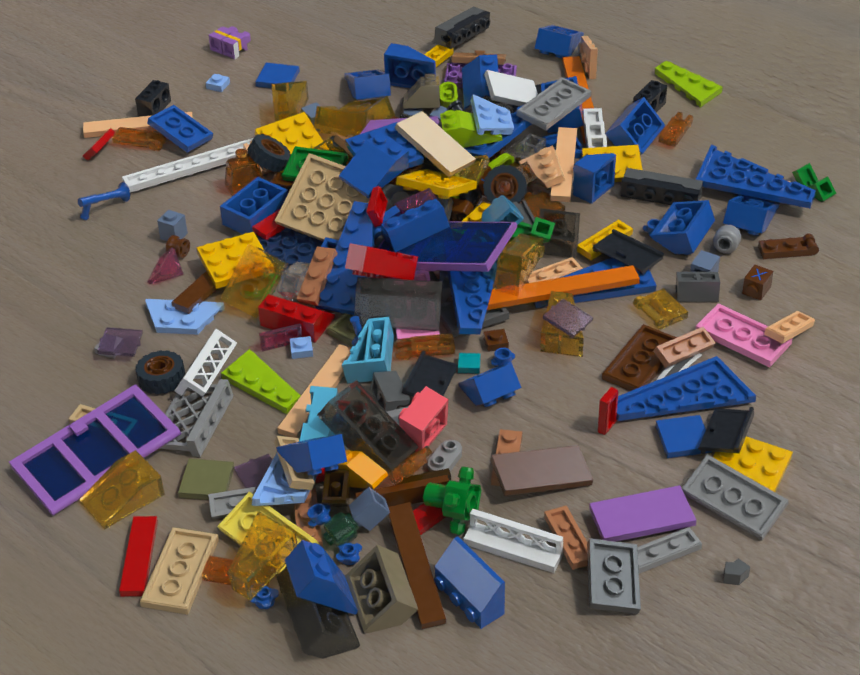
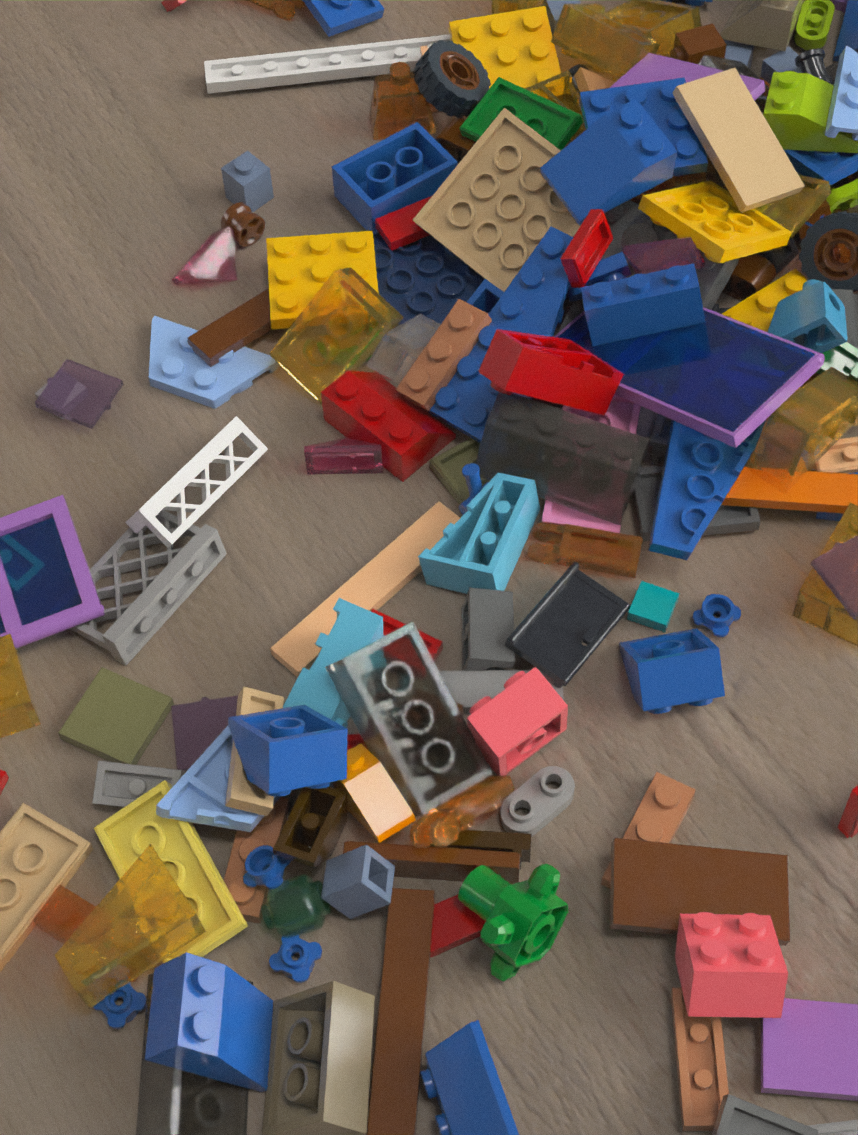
camera: 20 degrees right, 15 degrees up
(122, 192) = (125, 100): blue piece -> none
(160, 372) = (120, 473): black wheel -> none
(260, 381) = (279, 538): lime wing -> none
(301, 347) = (373, 487): light blue plate -> none
(394, 110) = (696, 42): none -> reddish brown brick
(495, 339) = (718, 569): reddish brown plate -> none
(514, 544) = (594, 1037): white fence -> none
(569, 490) = (730, 965): none -> coral brick

